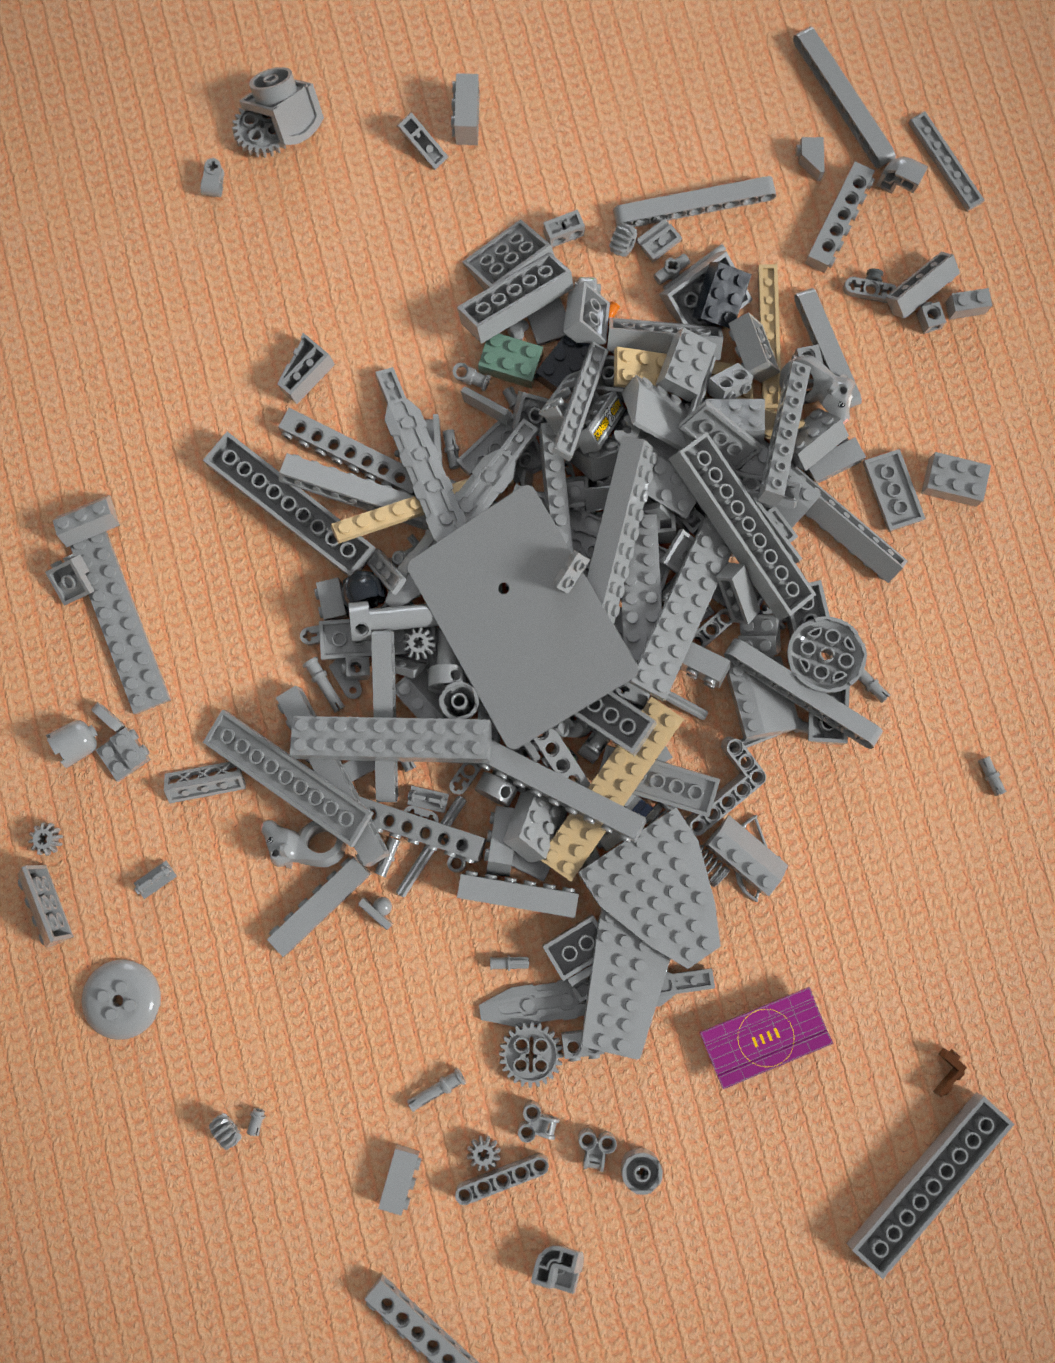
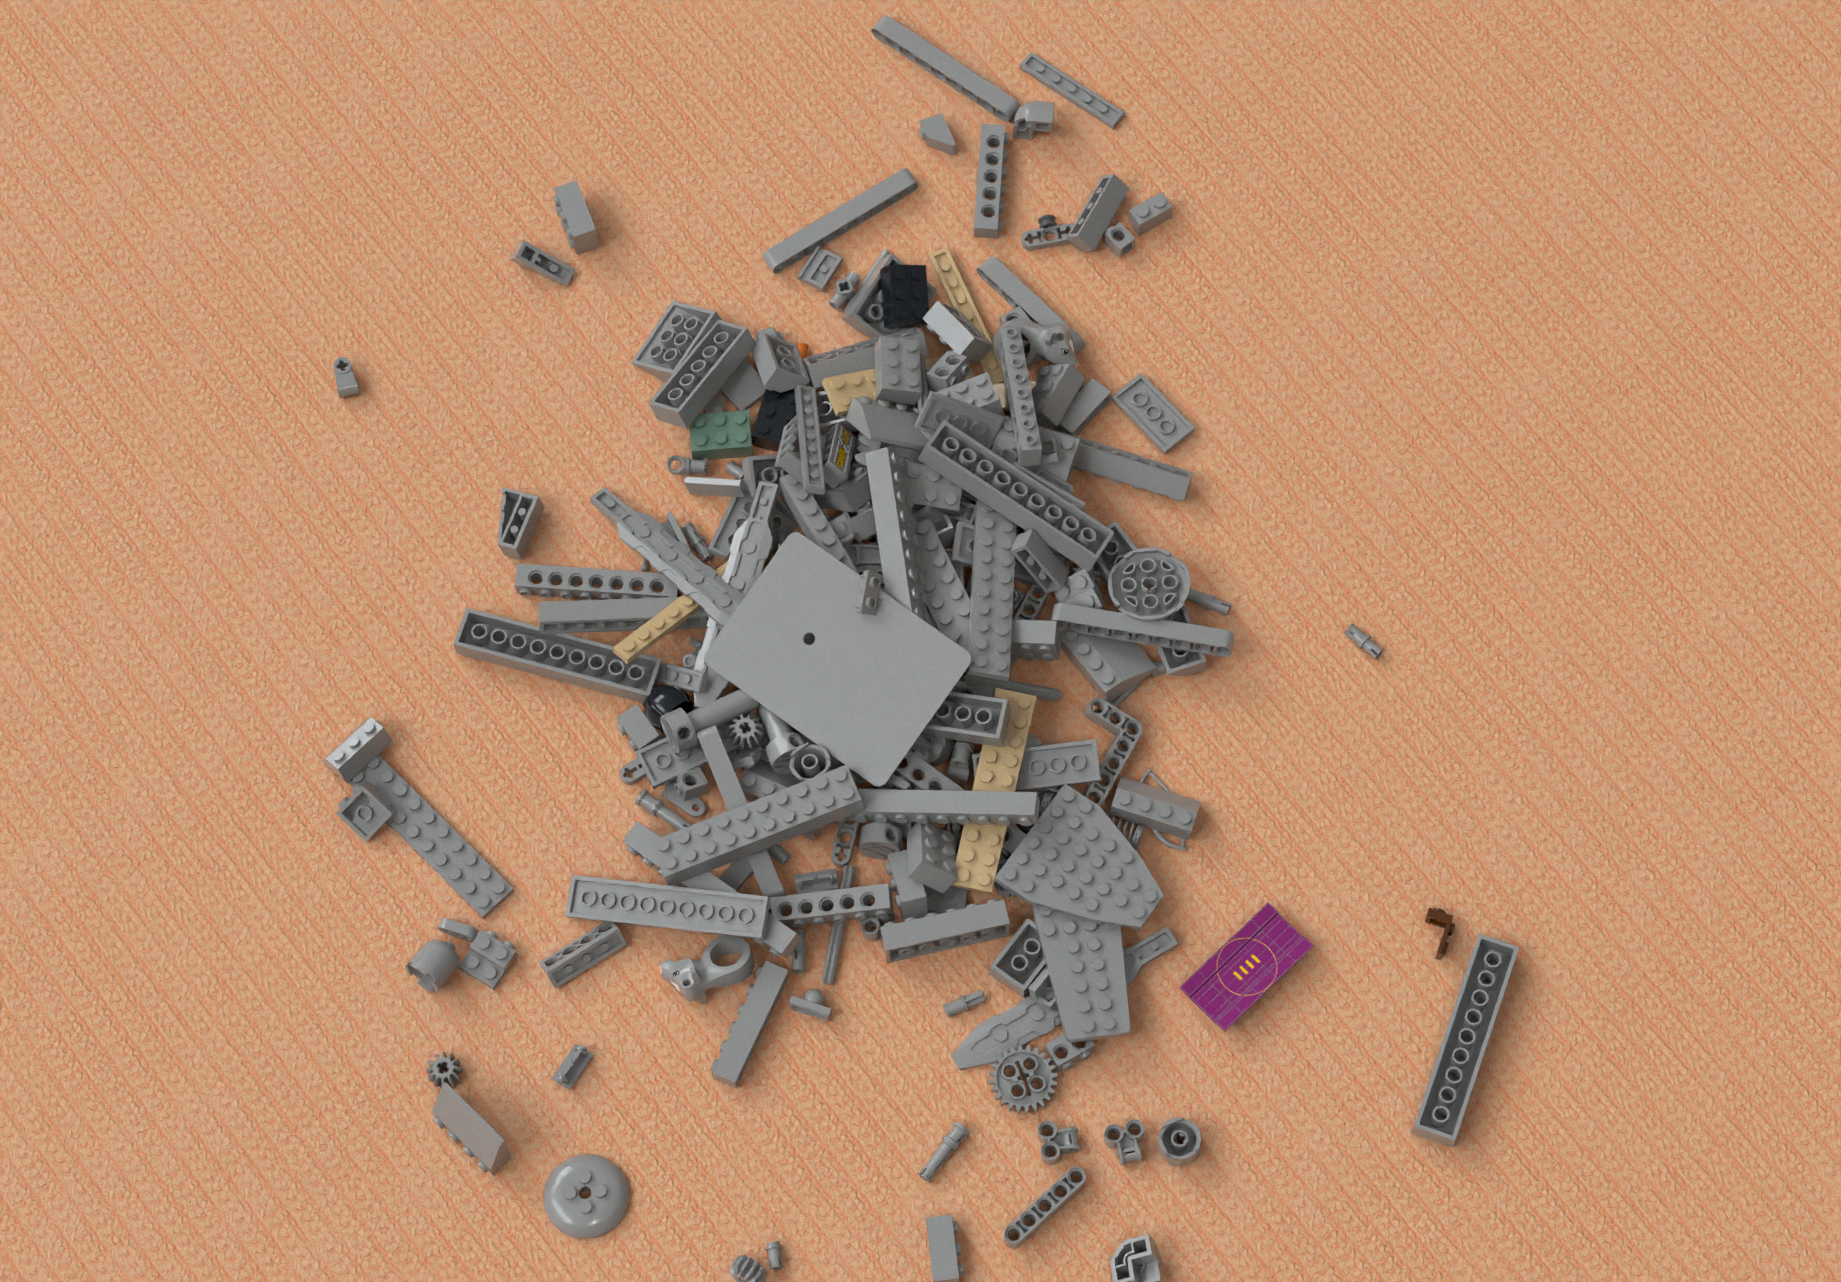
camera: 20 degrees left, 15 degrees down
(261, 128) = (375, 312): light grey gear -> none
(288, 102) = (393, 275): light grey piece -> none
(488, 1159) = (1008, 1191): light grey gear -> none
(564, 228) = (721, 292): light grey brick -> none
(623, 240) = (785, 281): light grey gear -> none
(956, 479) = (1208, 380): light grey brick -> none

